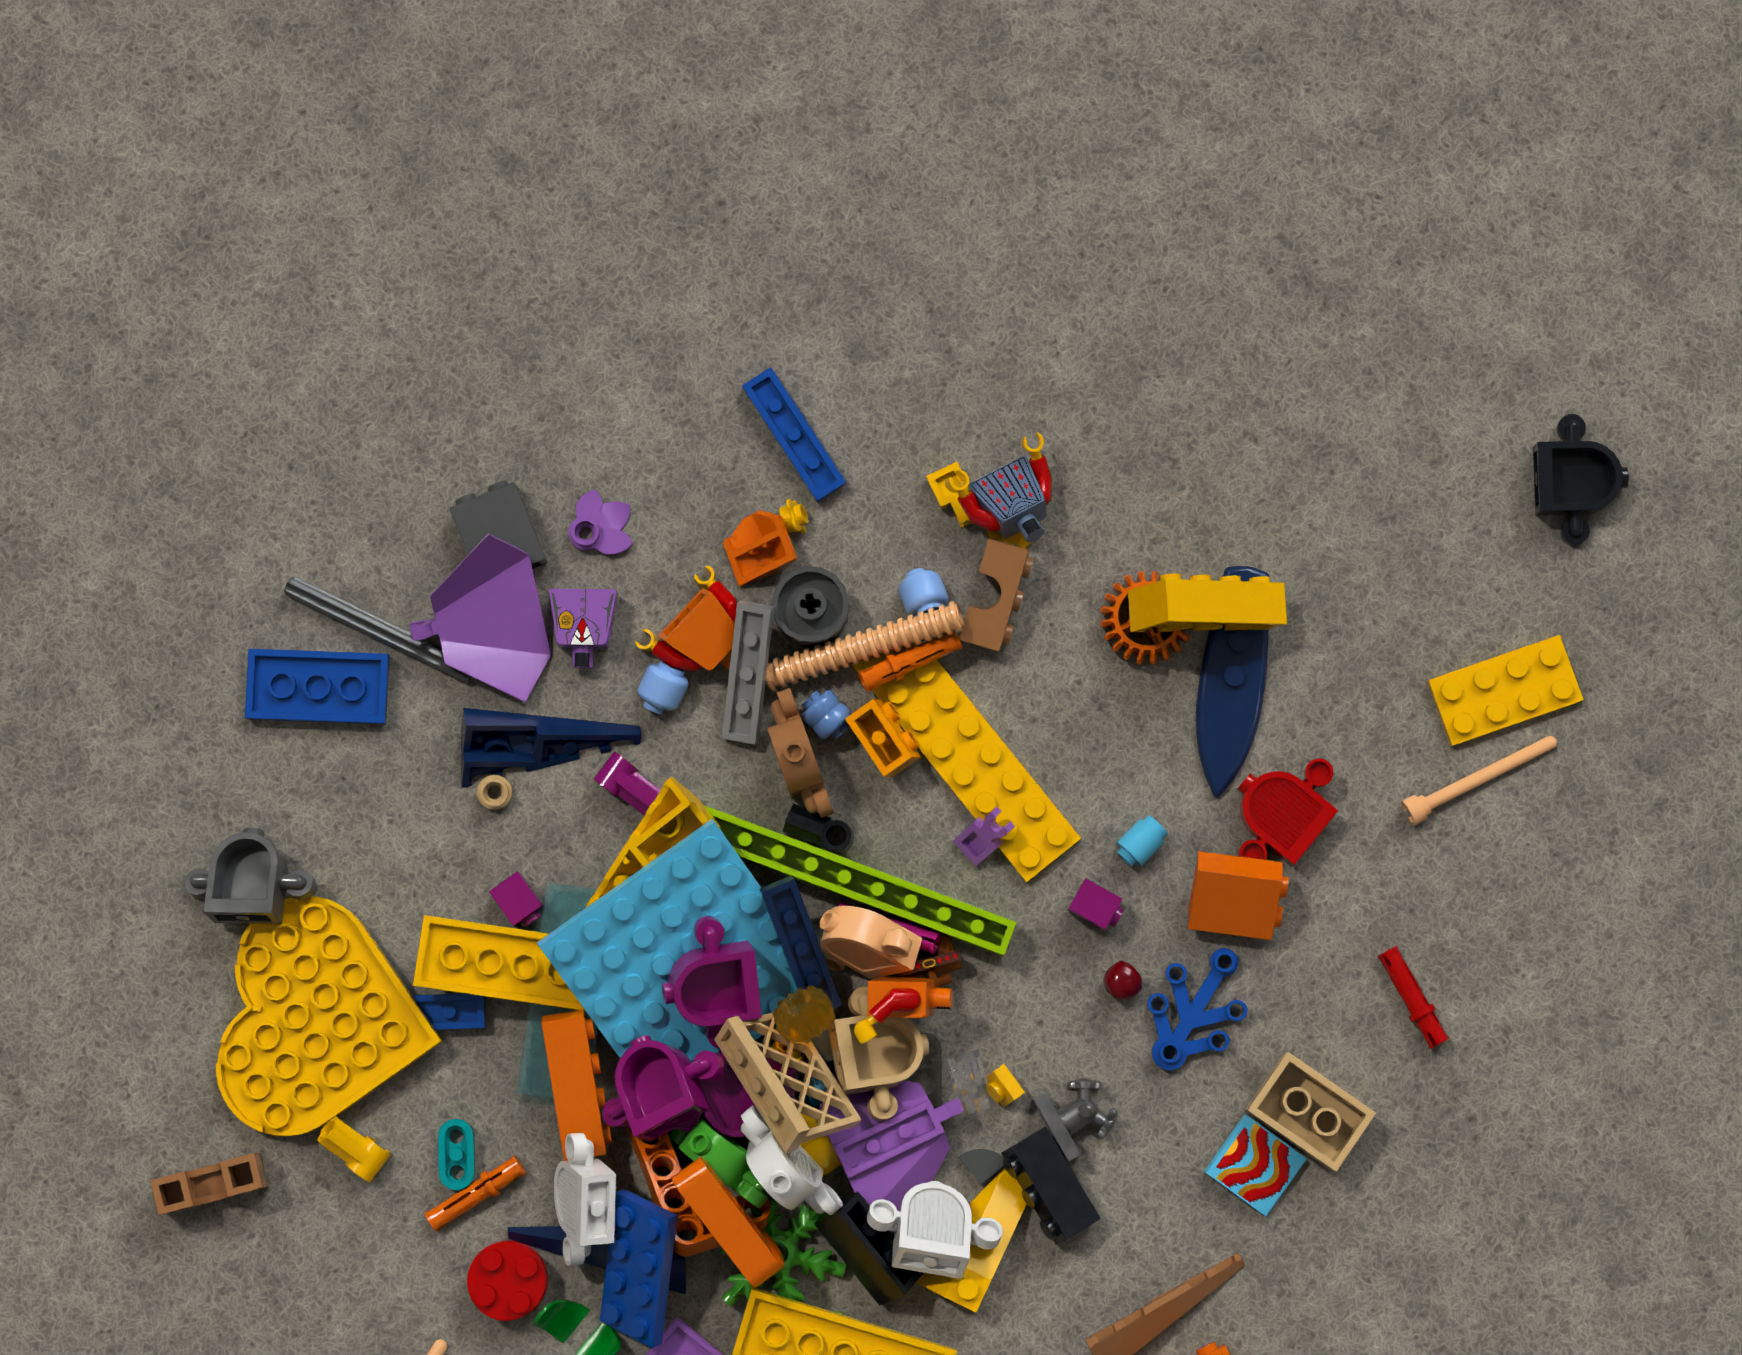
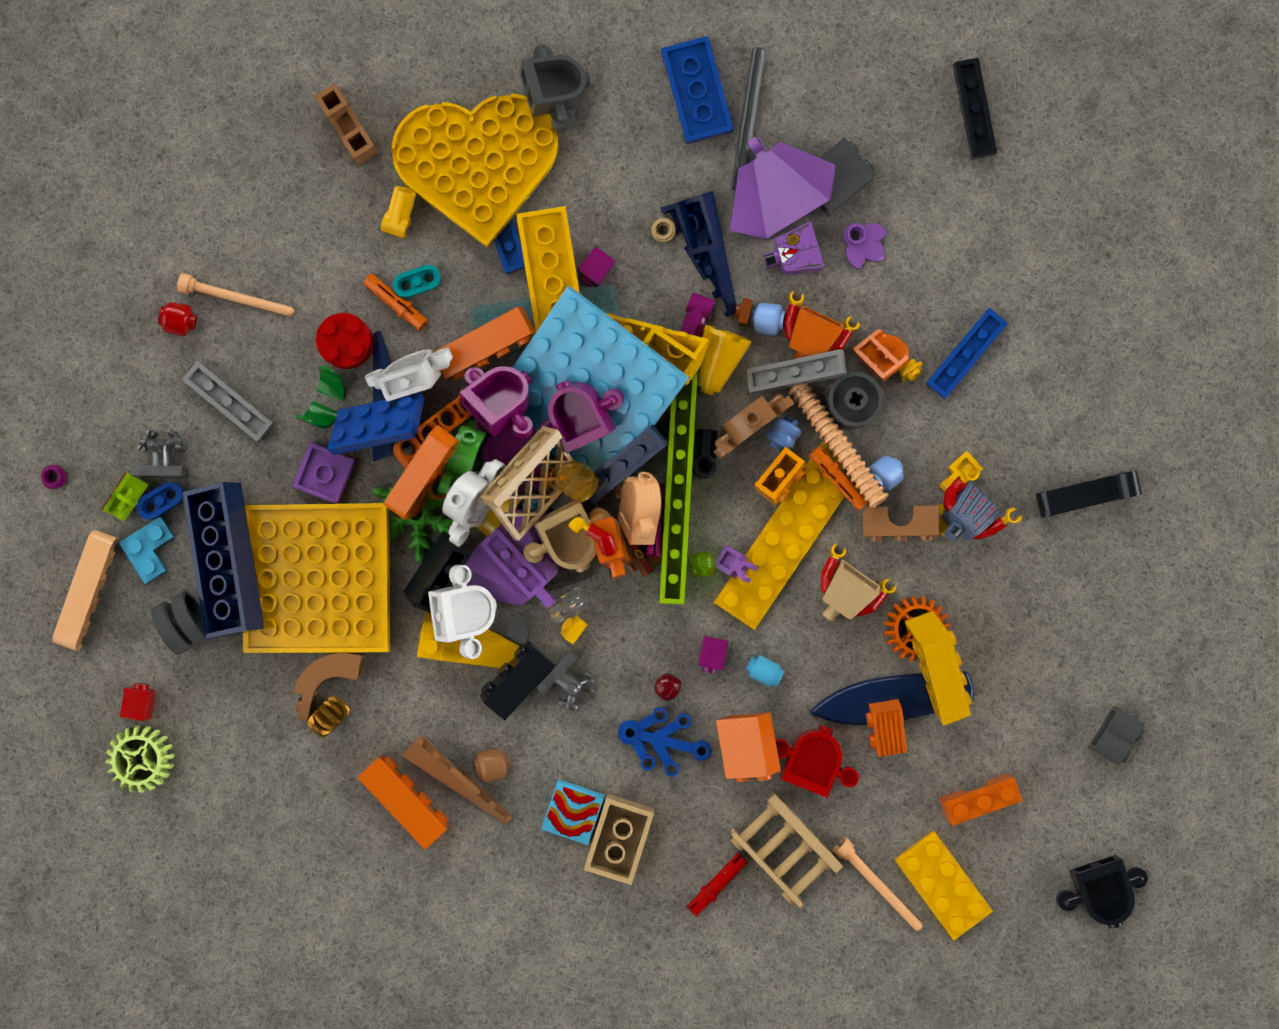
camera: 70 degrees right, 5 degrees up
(465, 319) = (974, 108): none -> black plate
(642, 717) = (743, 312): none -> dark orange plate
(697, 768) = (720, 359): none -> yellow cone
(969, 880) = (703, 564): none -> clear neon green piece
(1034, 333) = (1089, 493): none -> black beam
(1066, 692) = (849, 590): none -> tan torso
(1156, 1258) = (491, 765): none -> medium nougat head
(1269, 700) = (887, 728): none -> orange brick
(1372, 395) = (1117, 736): none -> dark grey brick
(1394, 855) = (809, 843): none -> tan fence
(1404, 604) = (977, 802): none -> orange arch

